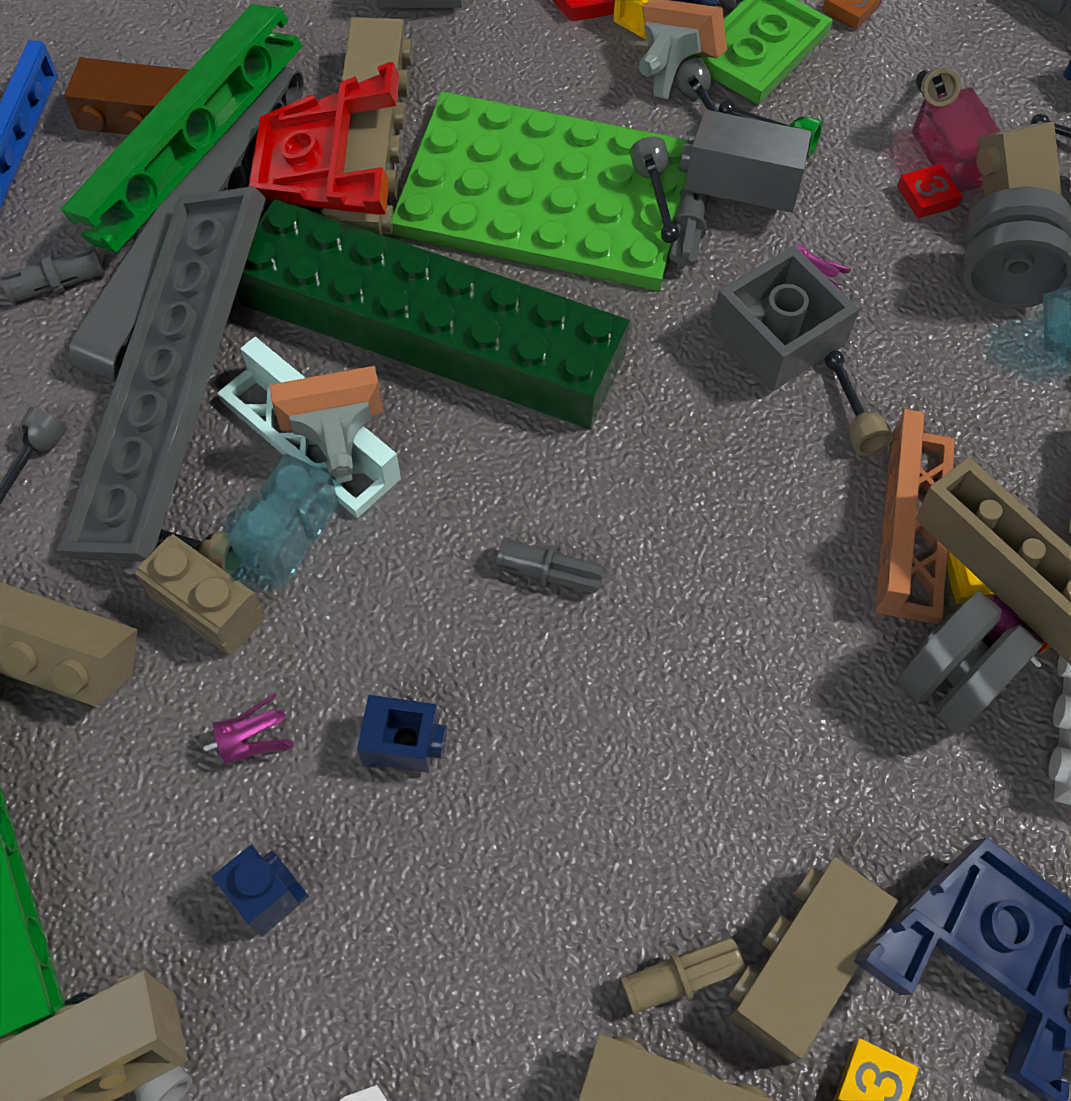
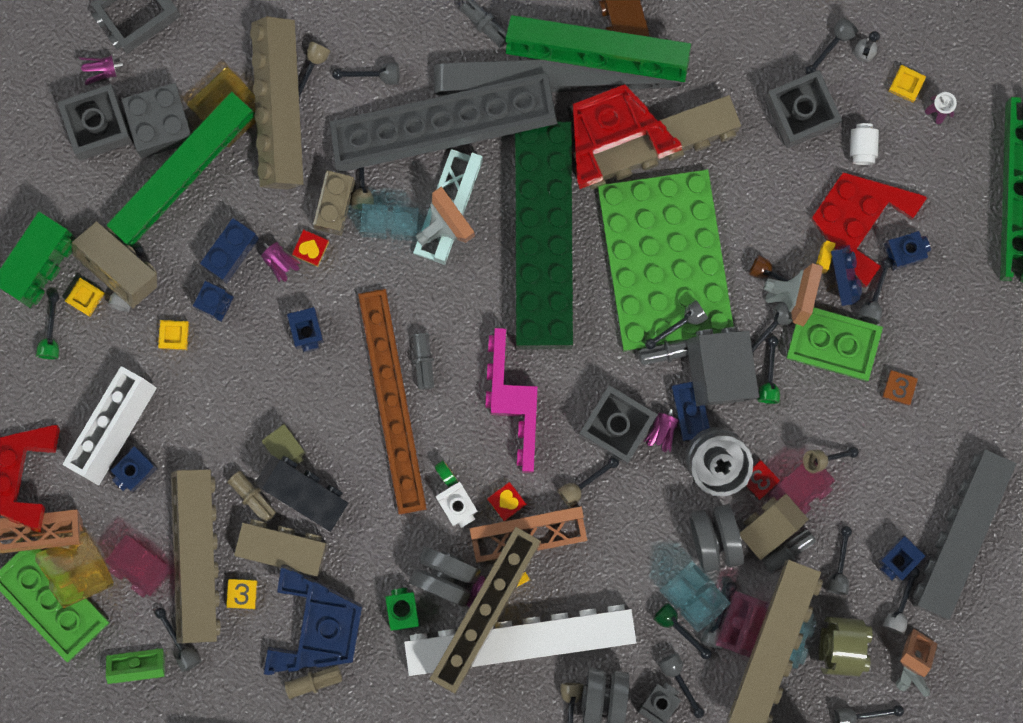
camera: 65 degrees right, 20 degrees up
(180, 814) = (229, 251): none -> dark blue brick
(257, 672) = (310, 248): none -> red tile
(286, 1003) = (173, 335): none -> yellow tile
(601, 647) = (392, 401): none -> dark orange tile
(610, 867) = (282, 443): none -> olive brick
(614, 83) = (762, 269): none -> reddish brown hinge
(680, 452) = (512, 400): none -> dark pink bracket
(714, 861) = (302, 492): none -> black brick
(768, 601) = (446, 474): none -> green tile
(778, 230) = (691, 418): none -> dark blue plate
(819, 617) = (454, 494): none -> white brick
(847, 532) = (506, 501): none -> red tile
(894, 206) = (728, 475): none -> wheel
(1023, 763) = (408, 621): none -> green brick

